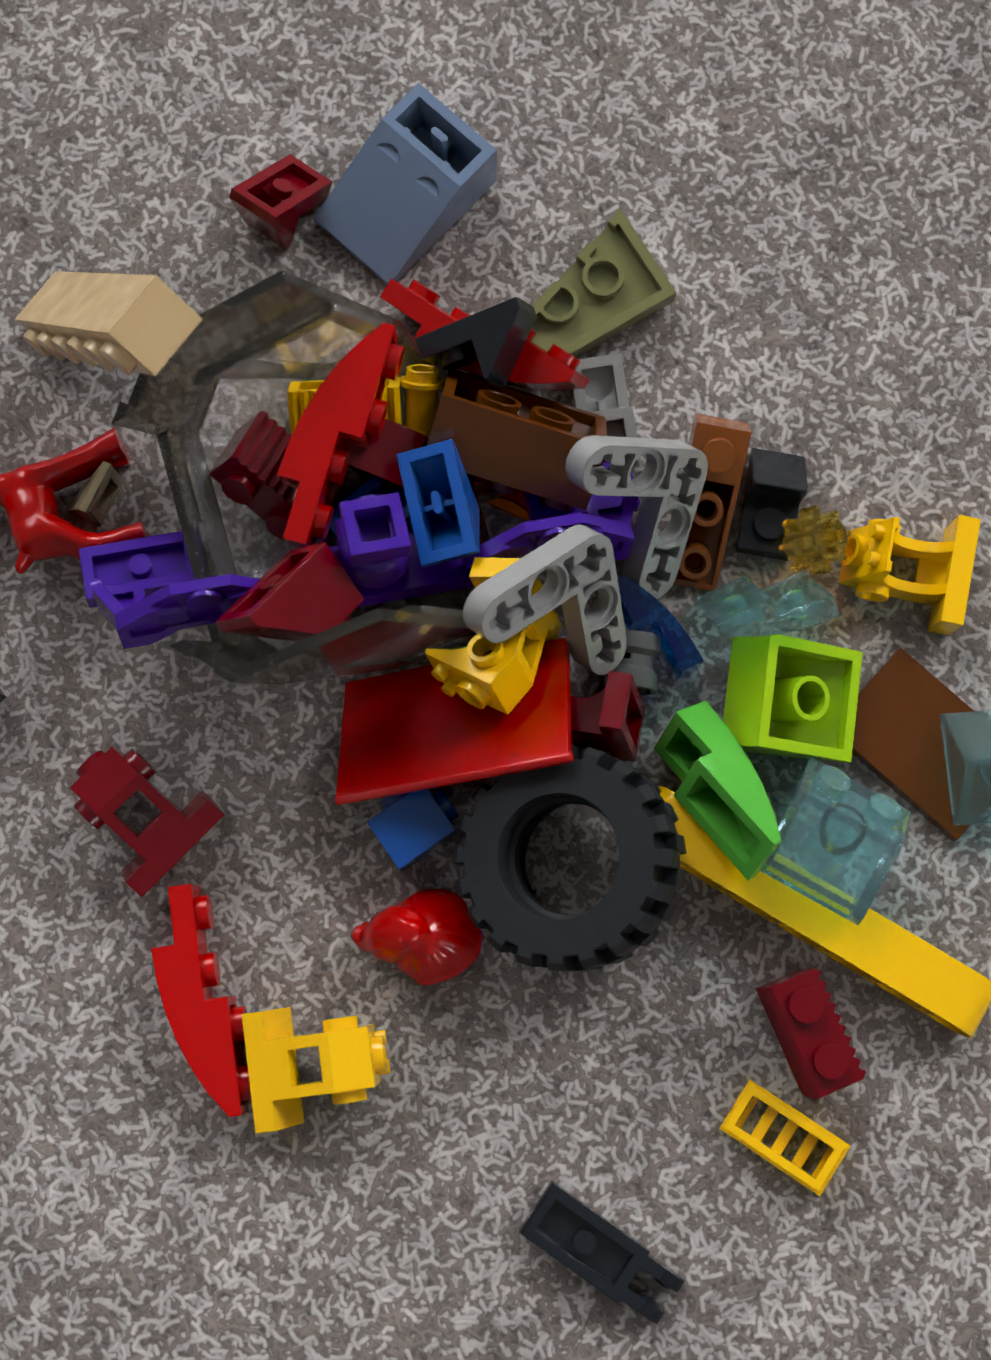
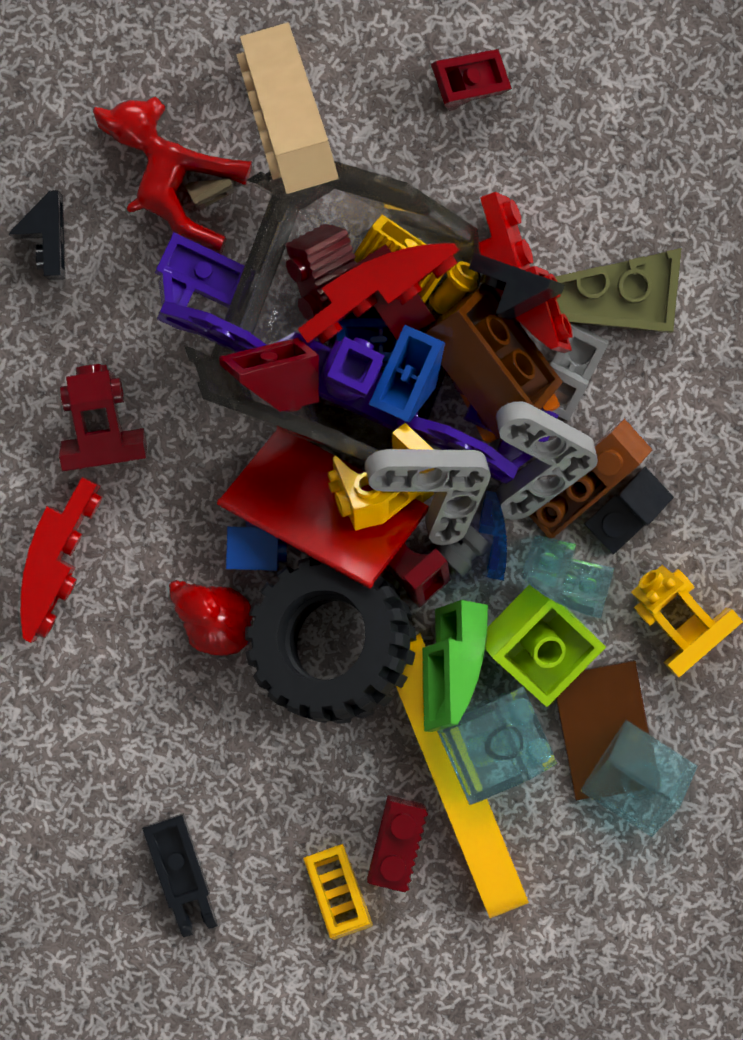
camera: 35 degrees right, 10 degrees up
(349, 1060) = (116, 658): yellow tile -> none
(408, 185) = (553, 132): sand blue slope -> none
(815, 540) = (631, 557): clear yellow gear -> none

